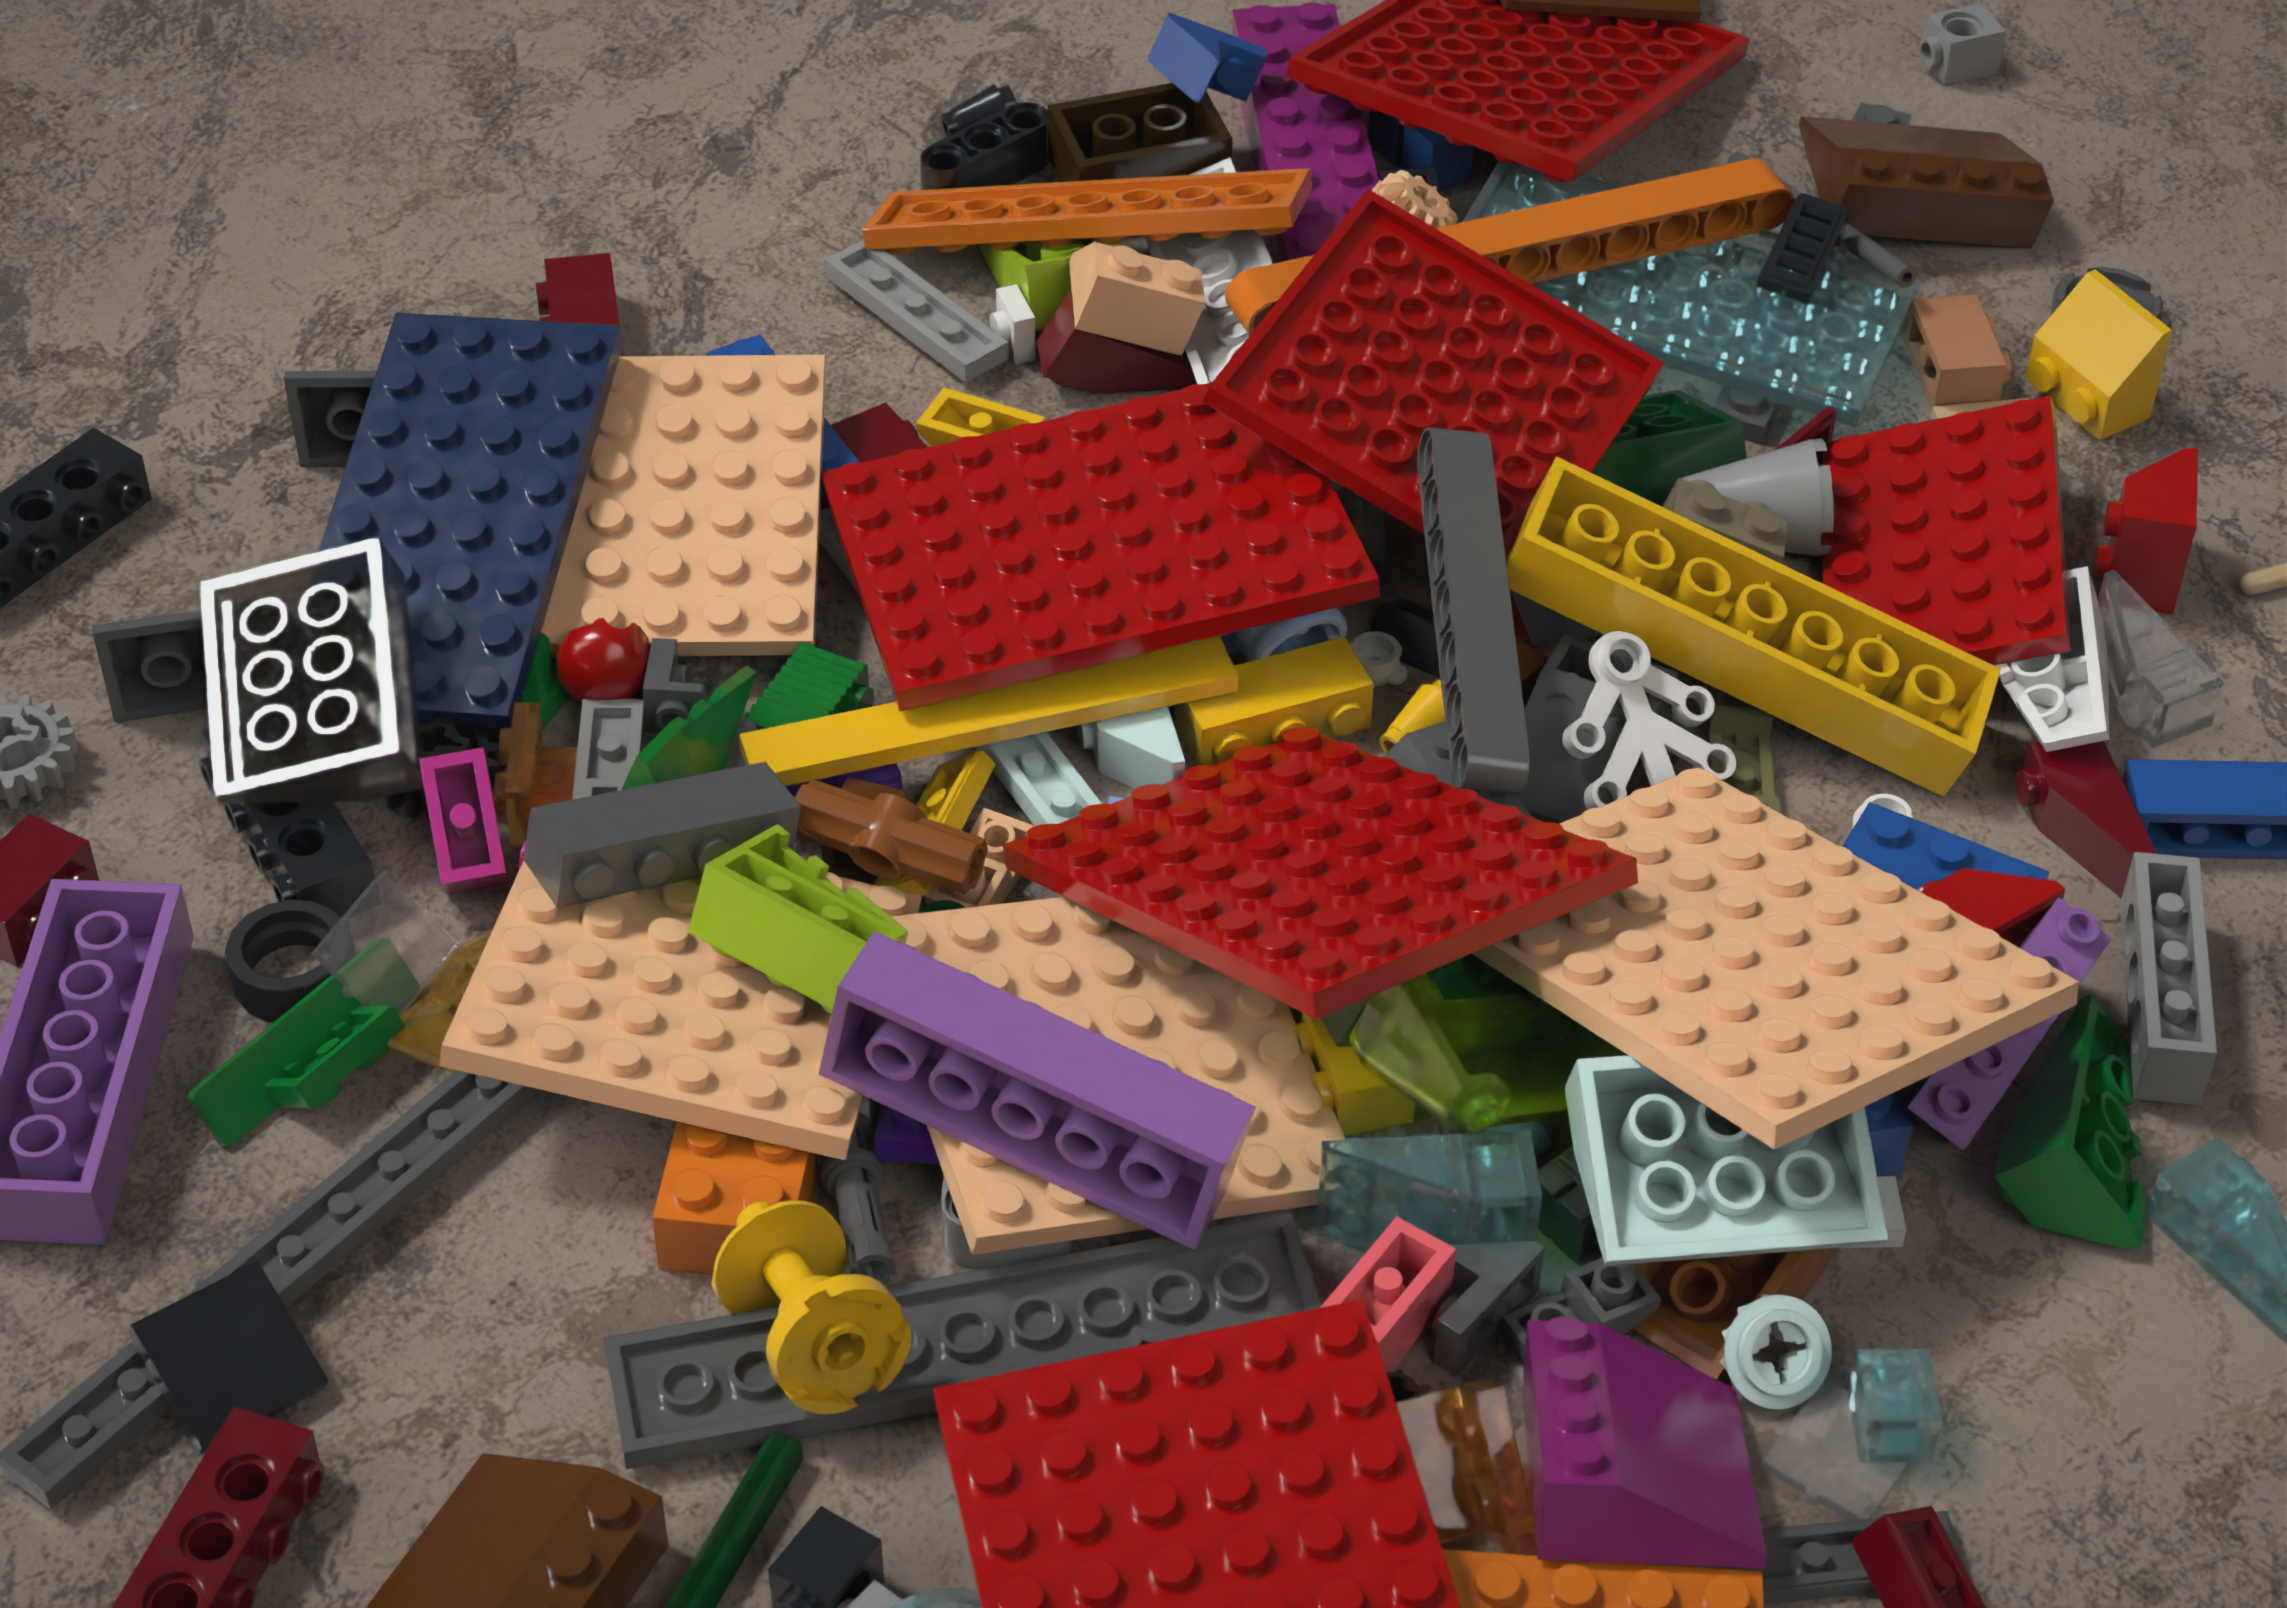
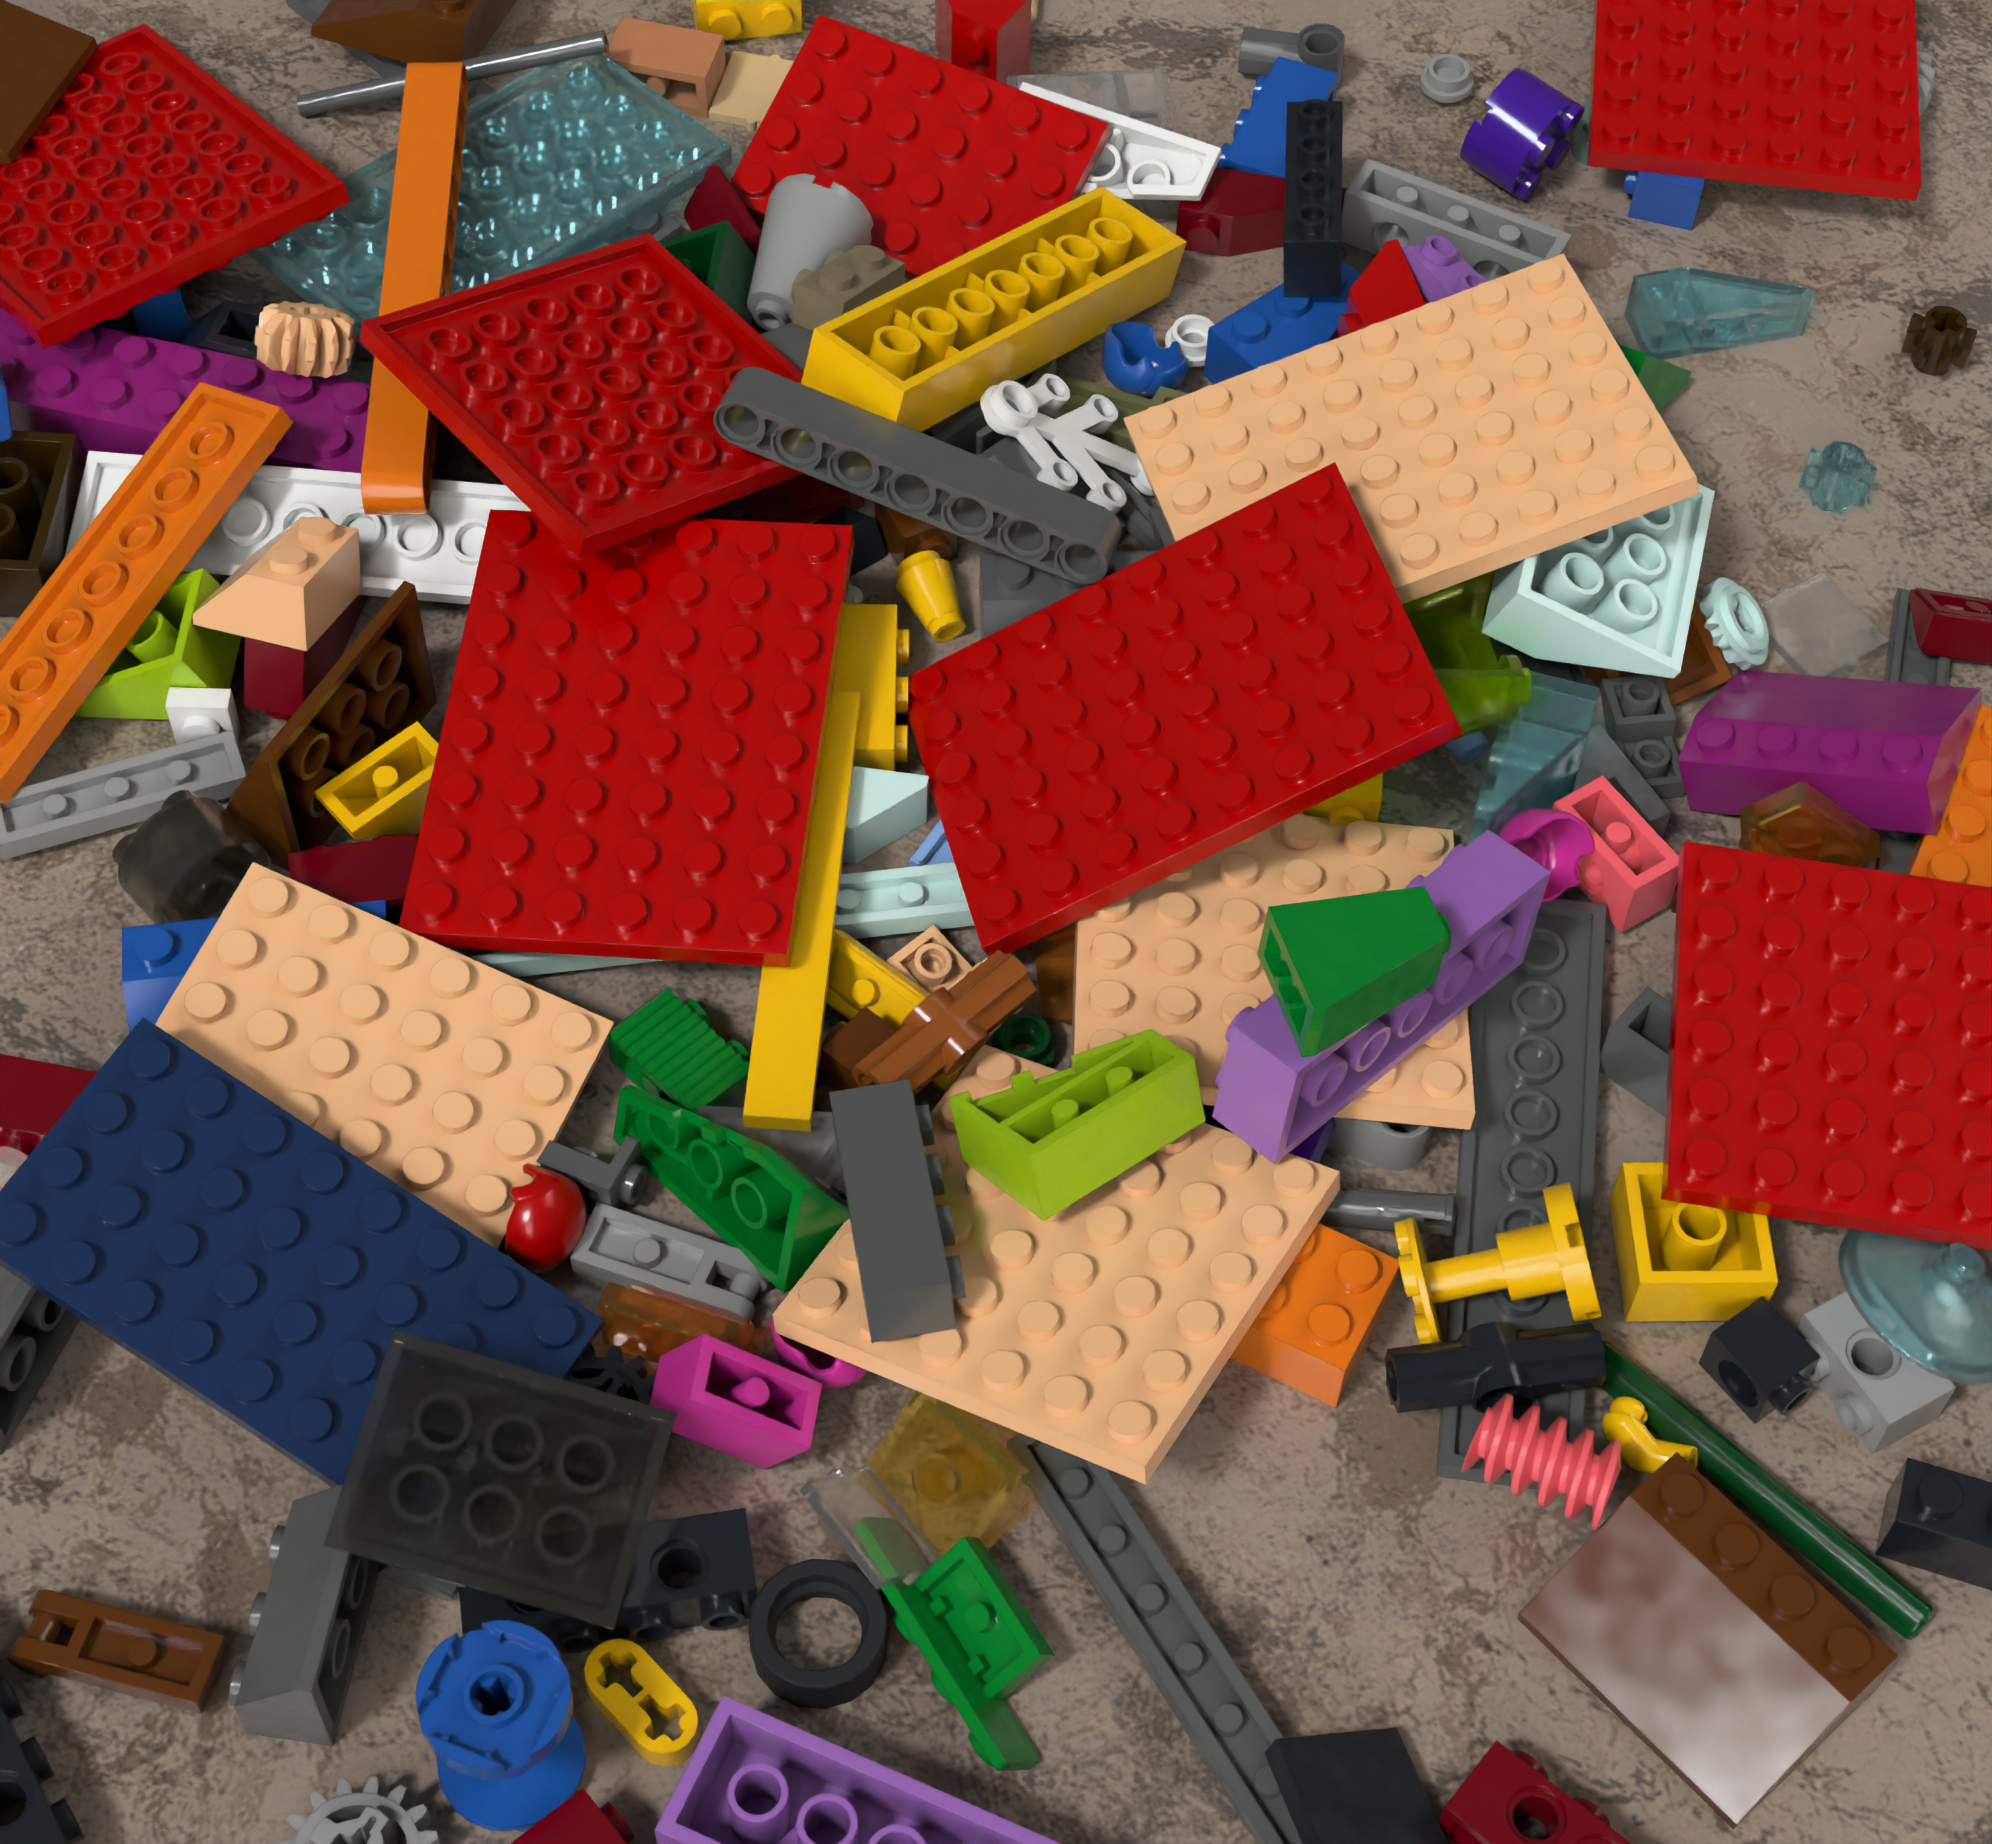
camera: 70 degrees left, 10 degrees up
(107, 733) = (501, 1725): none -> blue piece
(146, 566) = (120, 1651): none -> reddish brown plate
(205, 880) = (629, 1713): none -> yellow beam
(611, 1391) = (1545, 1458): none -> coral piece
(691, 1503) = (1638, 1445): none -> yellow arm
(708, 1337) = (1494, 1361): none -> black piece
(860, 347) = (186, 859): none -> clear smoke brick
(903, 1479) = (1685, 1257): none -> yellow brick
(976, 988) = (1350, 960): none -> green slope
(1012, 358) = (358, 706): none -> reddish brown slope
(1328, 1224) = (1552, 840): none -> dark pink hair
(1805, 246) = (505, 63): black slope -> none
(1817, 780) = (1138, 363): none -> blue hair
(1894, 1405) = (1810, 571): clear light blue brick -> none
(2067, 1409) = (1837, 477): none -> clear light blue gear
(2082, 812) = (1313, 198): none -> black brick

